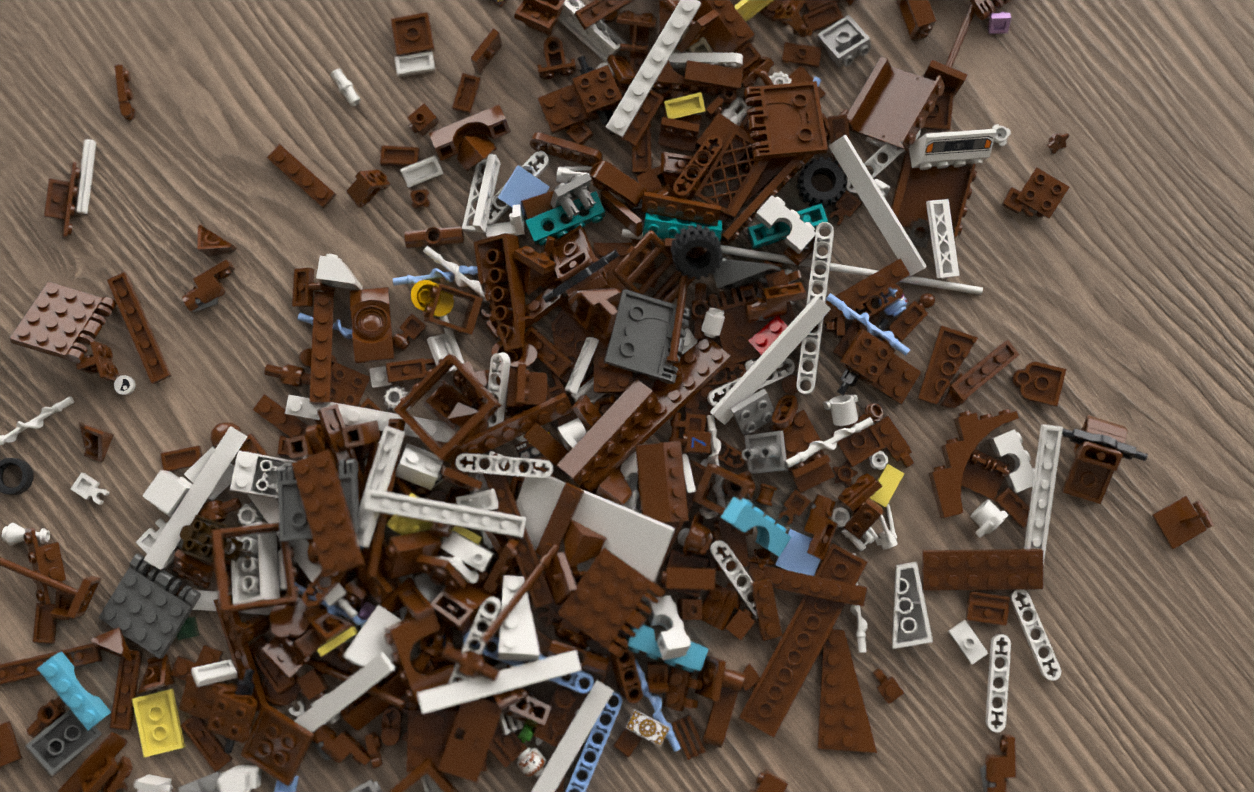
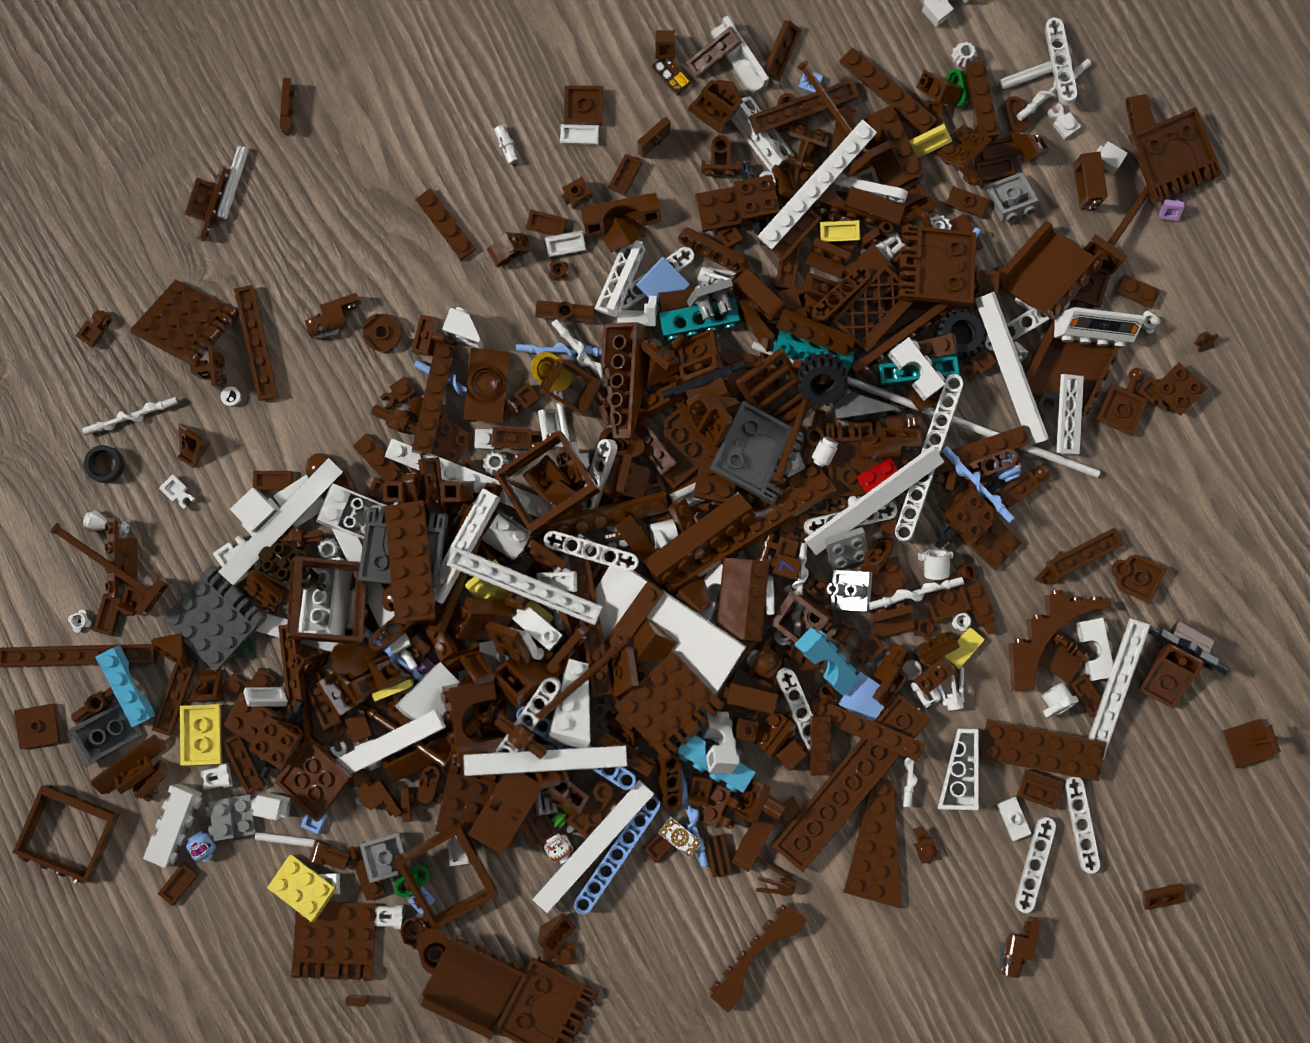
camera: 10 degrees right, 0 degrees up
(12, 635) = (73, 619): none -> white plate
(189, 758) = (224, 777): none -> white piece
(212, 244) = (344, 274): reddish brown slope -> none
(249, 294) = (382, 321): none -> reddish brown plate
(290, 346) = (400, 390): none -> reddish brown plate
(581, 365) = (686, 467): white tile -> none
(759, 753) = (786, 885): none -> reddish brown plant
(803, 198) = (939, 346): none -> reddish brown plate
(946, 358) = (1049, 534): reddish brown wing -> none
(983, 107) = (1138, 291): none -> reddish brown plate
(990, 222) = (1121, 407): none -> reddish brown plate
(1128, 688) = (1163, 896): none -> reddish brown plate

